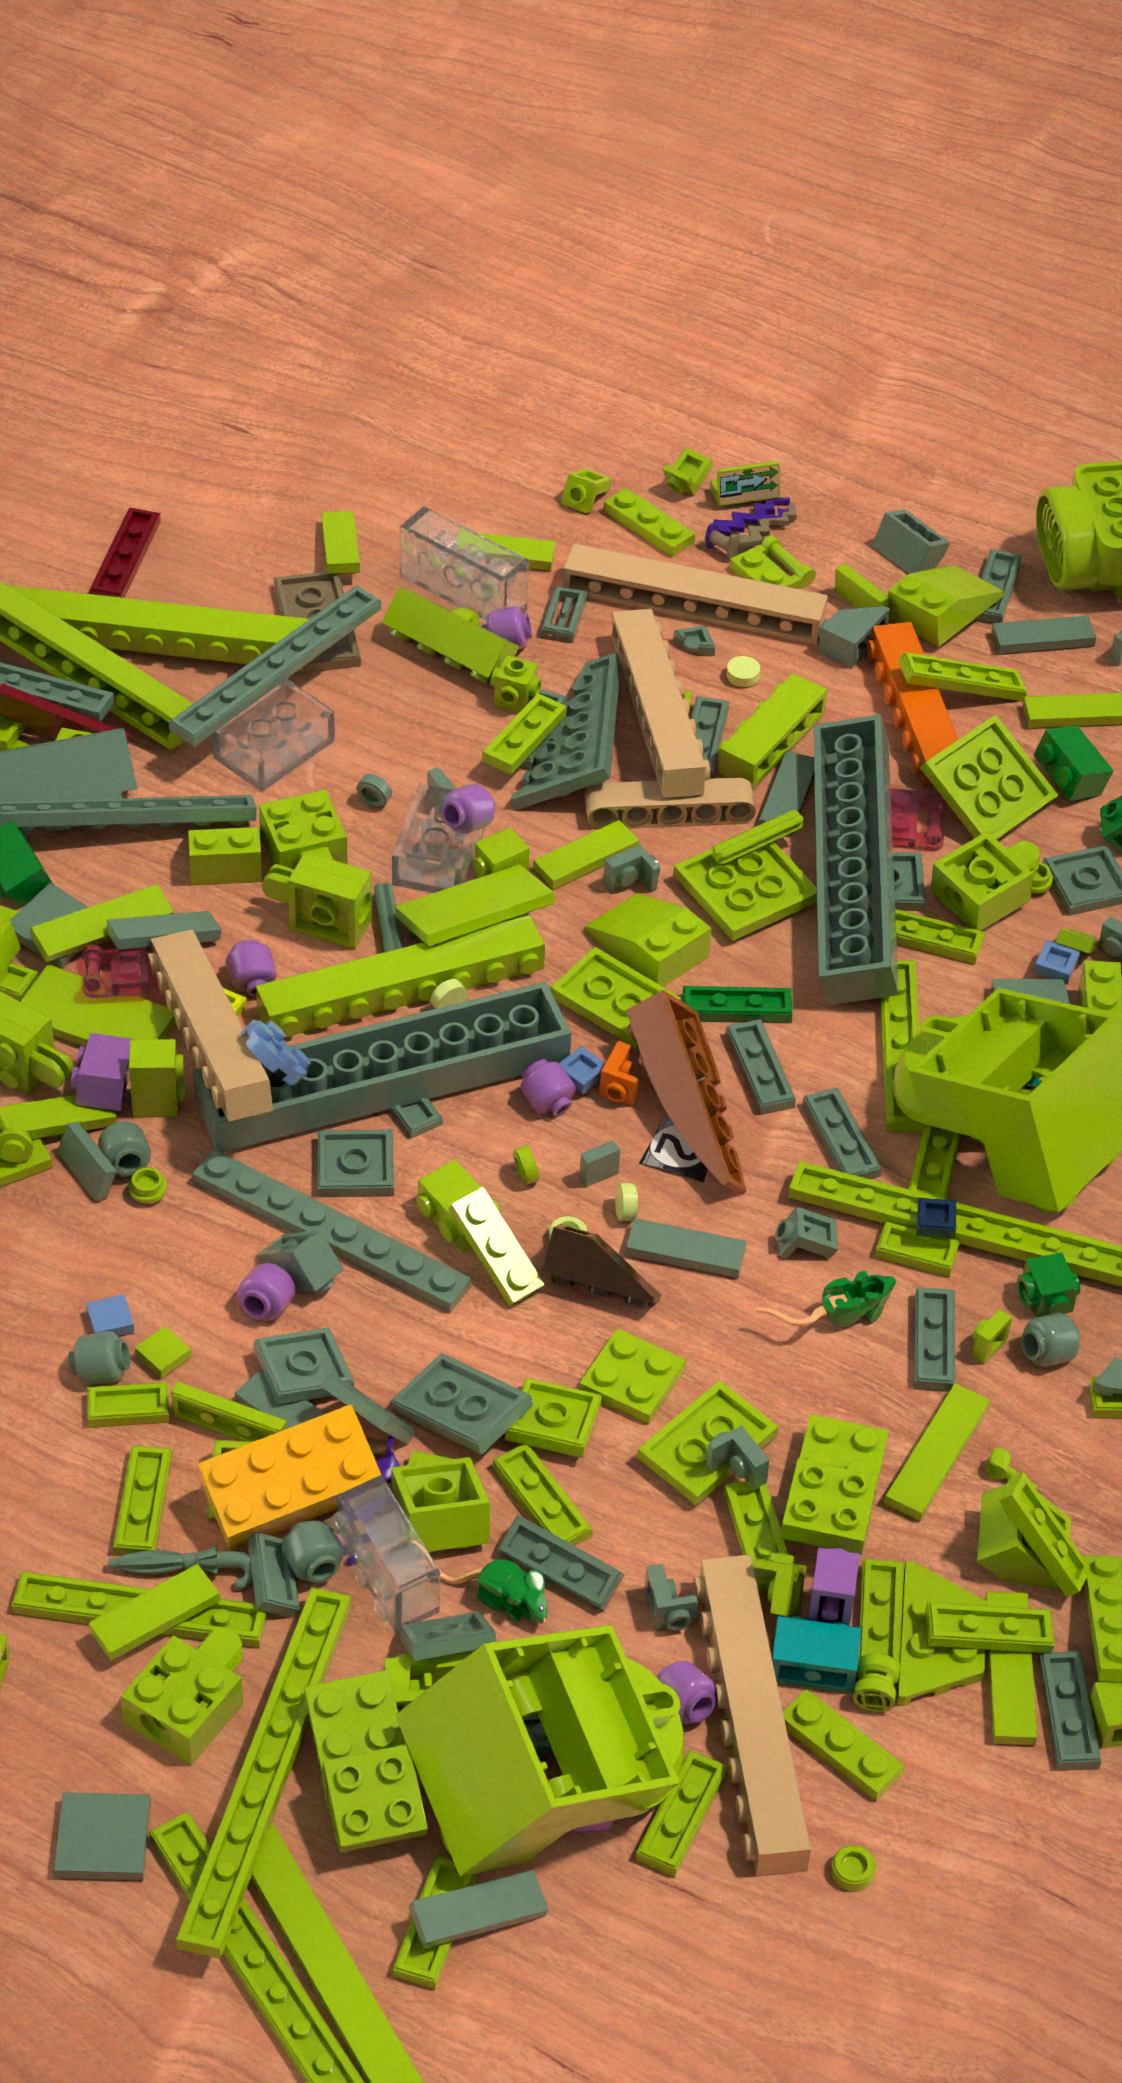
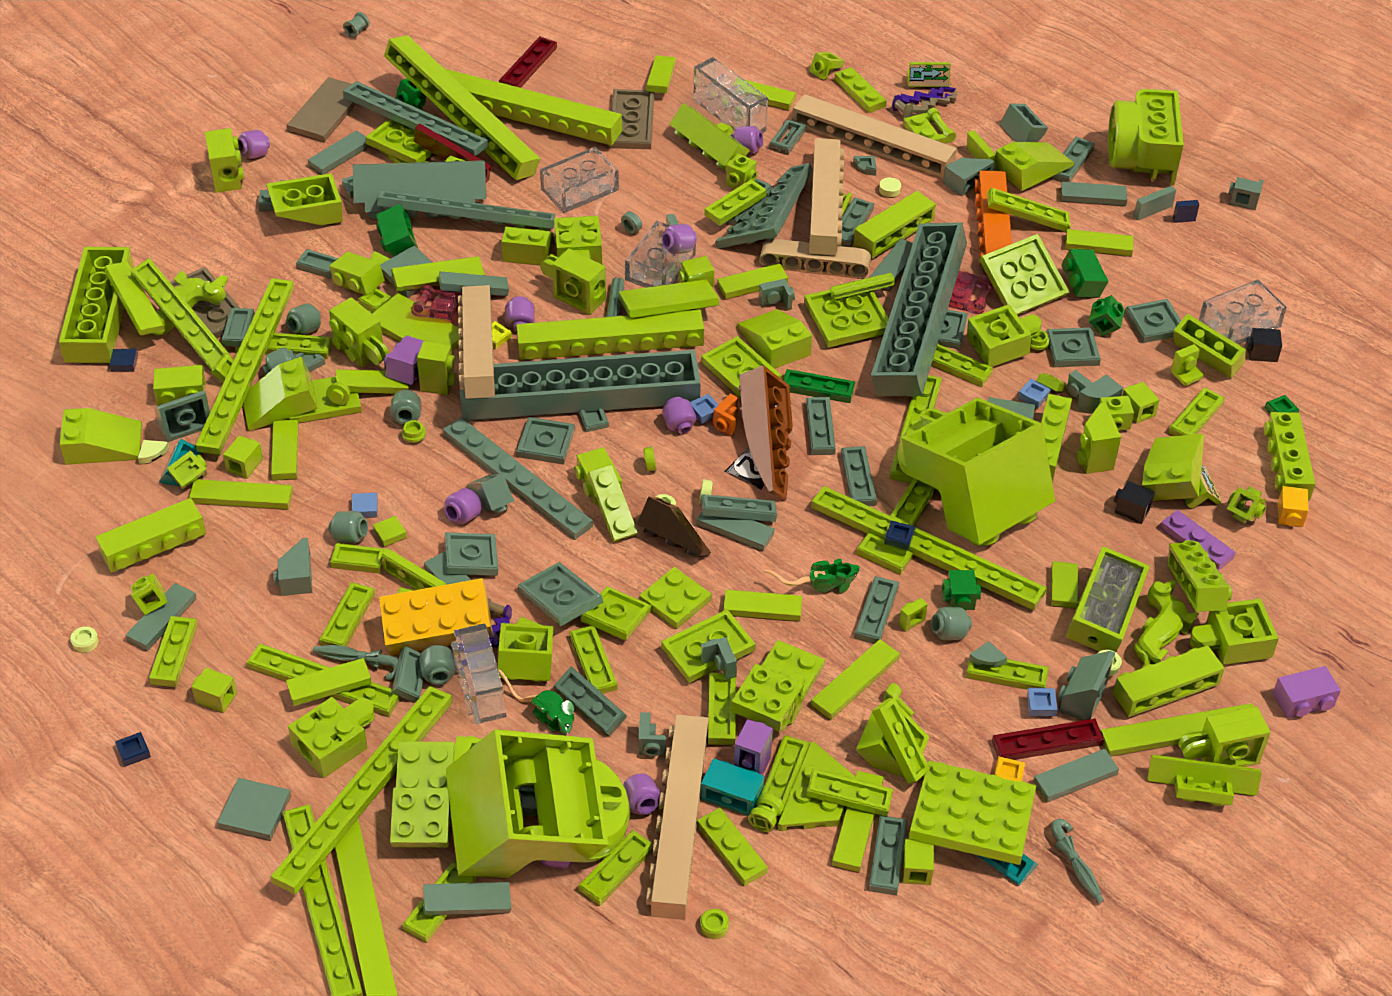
camera: 15 degrees right, 0 degrees up
(40, 1444) = (294, 570): none -> sand green slope
(86, 1161) = (380, 411): sand green tile -> none
(273, 1052) = (505, 359): medium blue plate -> none
(274, 666) = (590, 138): sand green tile -> none
(368, 1408) = (499, 585): sand green tile -> none
(446, 1635) = (484, 727): sand green tile -> none
(449, 993) = (636, 347): yellowish green tile -> none
(599, 1163) = (696, 466): sand green tile -> none
(684, 1218) = (738, 508): none -> sand green tile
(688, 471) = (893, 63): lime bracket -> none
(767, 1363) = (763, 605): none -> lime tile
(787, 1587) = (724, 743): lime bracket -> none
(808, 1232) = (815, 530): sand green bracket -> none

